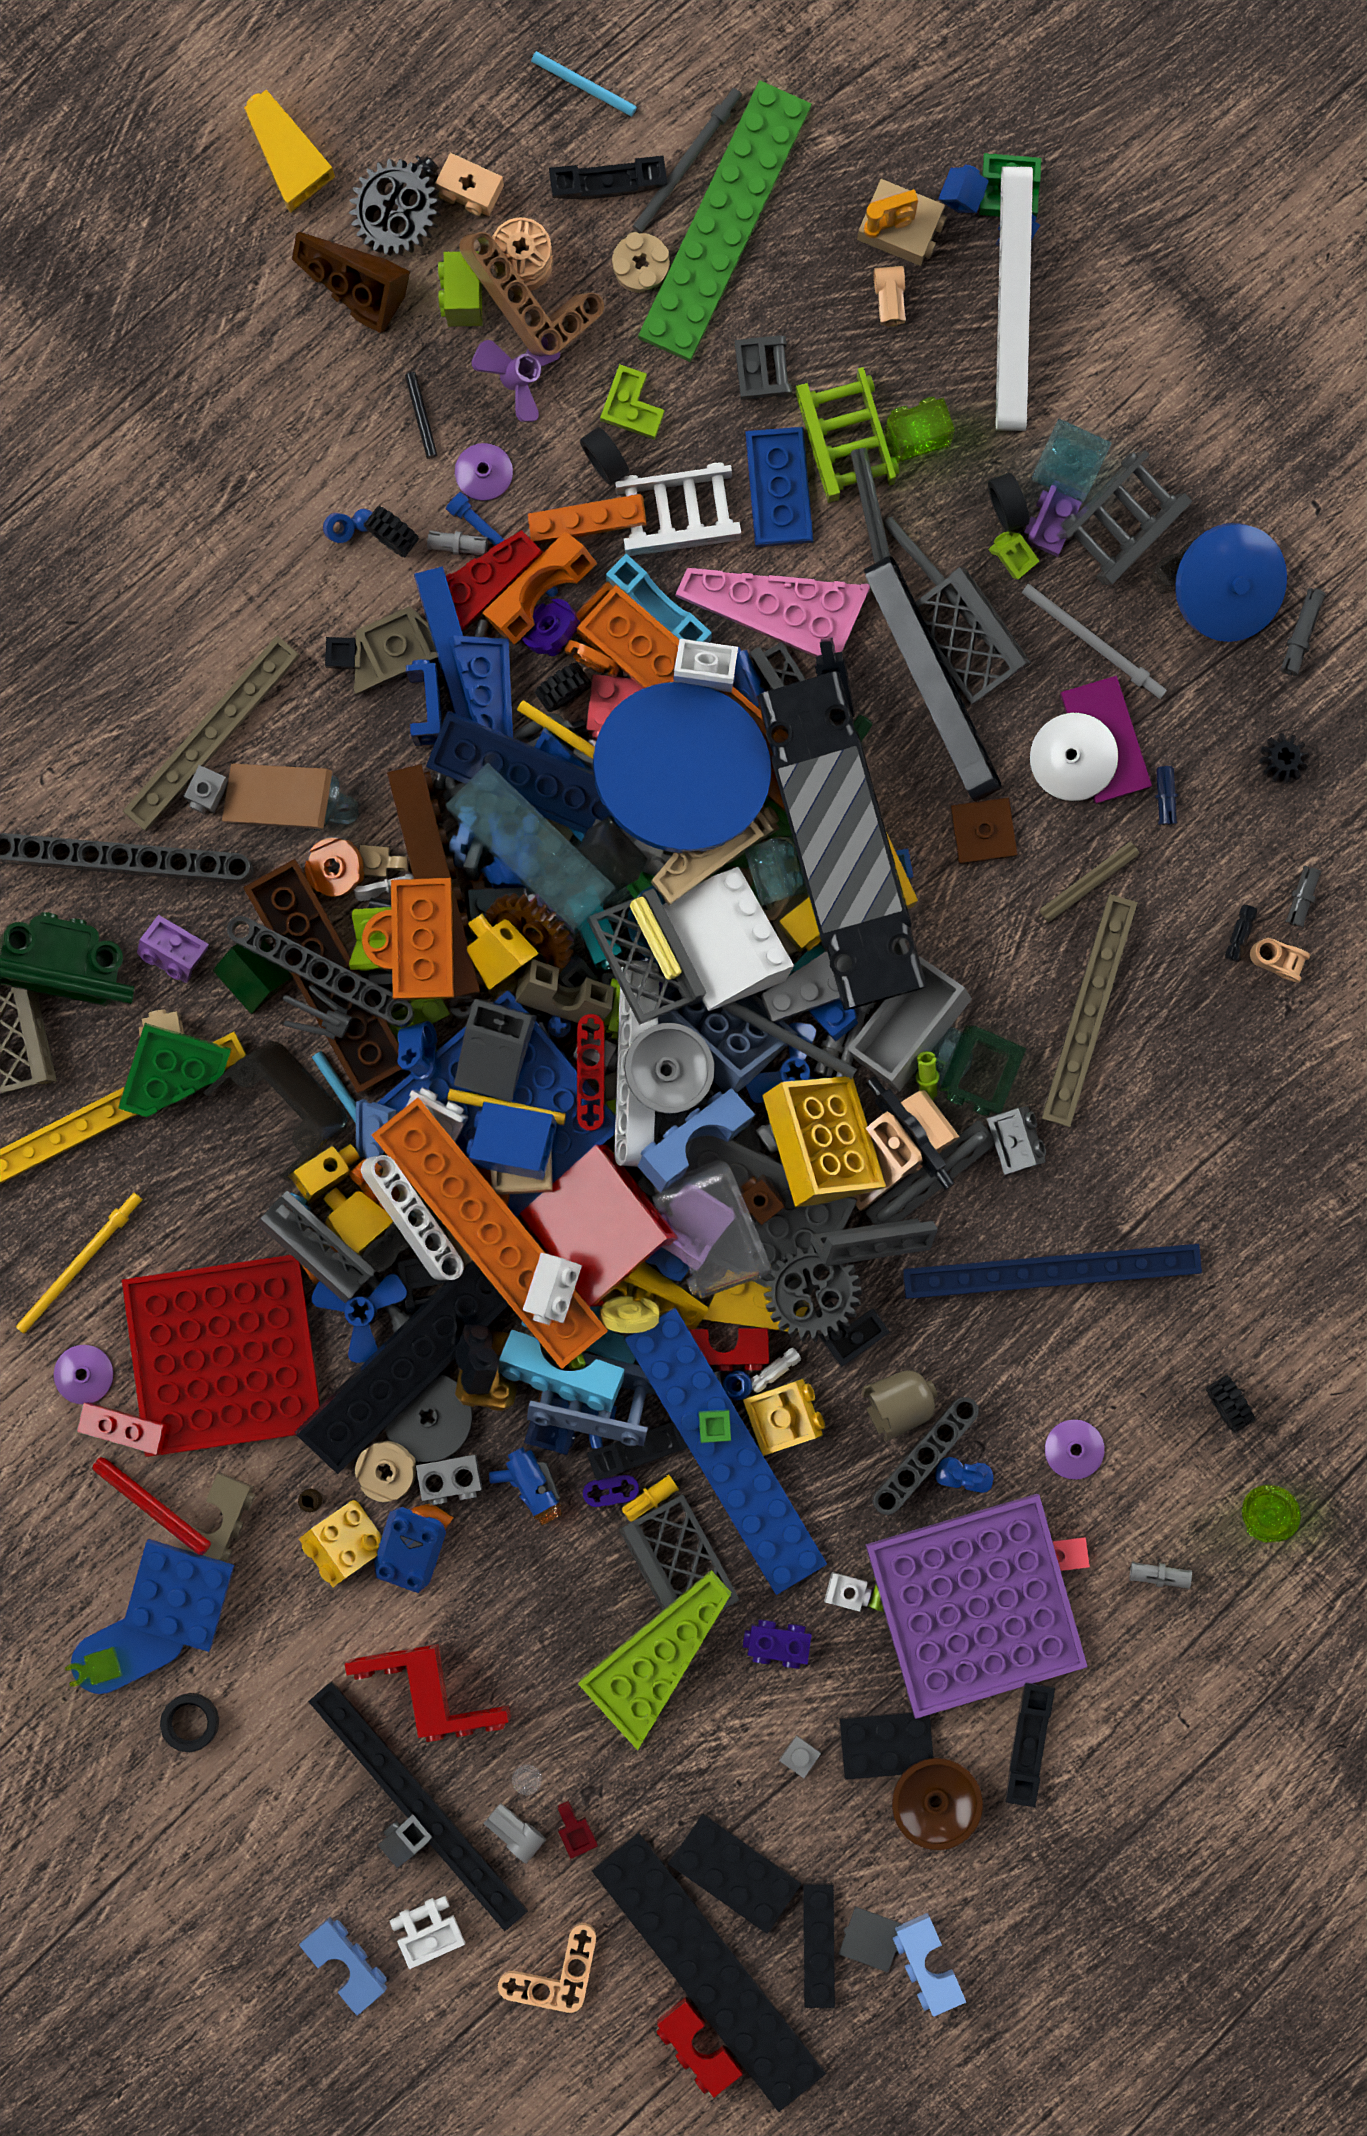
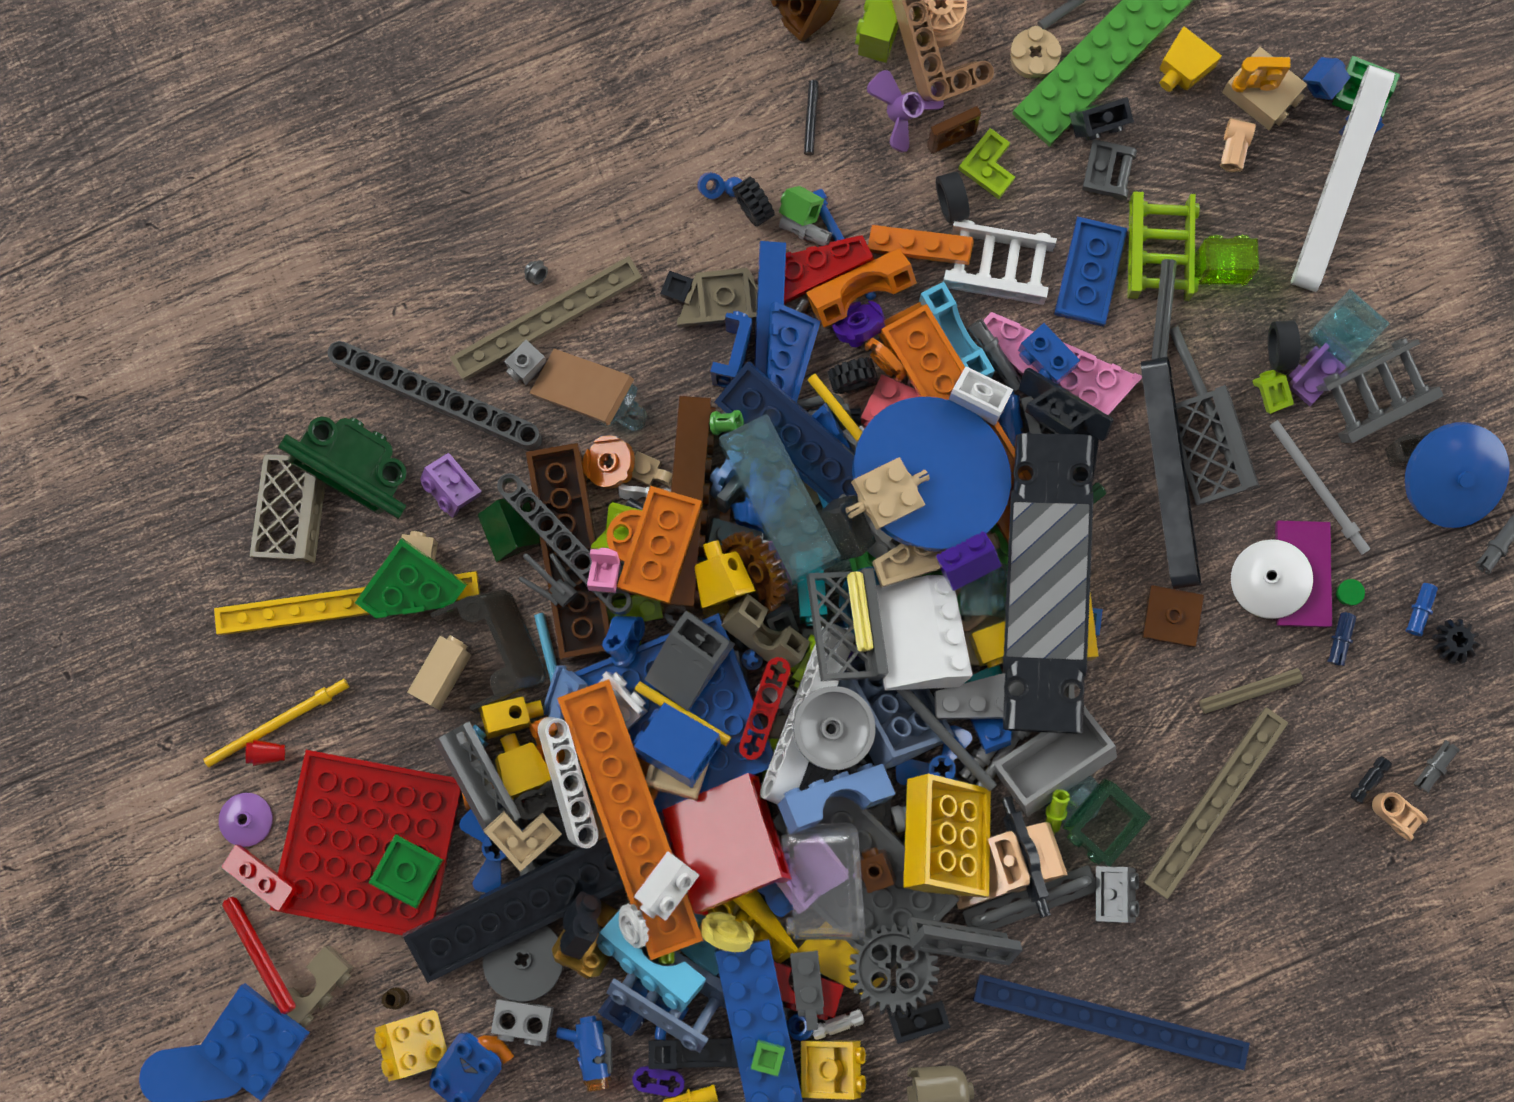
camera: 25 degrees right, 5 degrees down
(78, 1298) = (264, 752): none -> red cone
(99, 1667) = (163, 1080): clear neon green plate -> none
(181, 686) = (535, 272): none -> dark grey plate
(235, 1150) = (440, 671): none -> tan brick
(274, 1368) = (406, 871): none -> green tile
(370, 1477) = (485, 995): tan plate -> none
(373, 985) = (603, 570): none -> bright pink bracket
(388, 1299) = (521, 845): none -> tan plate
(444, 518) = (801, 205): none -> bright green brick
(446, 784) = (725, 422): none -> bright green bush
(487, 485) = (847, 191): medium lavender dish -> none
(531, 1340) = (633, 925): none -> white gear
(581, 381) = (953, 130): none -> reddish brown plate
(643, 805) = (887, 493): none -> tan plate
(700, 608) = (995, 354): none -> dark grey pin
(731, 1341) = (807, 986): none -> dark grey hinge
(735, 314) = (1101, 117): none -> black brick
(750, 847) = (968, 560): none -> dark purple brick
(763, 597) = (1048, 354): none -> blue brick
(794, 650) = (1061, 408): none -> black bracket
(808, 219) = (1187, 61): none -> yellow torso
(1160, 743) = (1350, 592): none -> green tile
(1239, 736) = (1422, 609): none -> blue axle

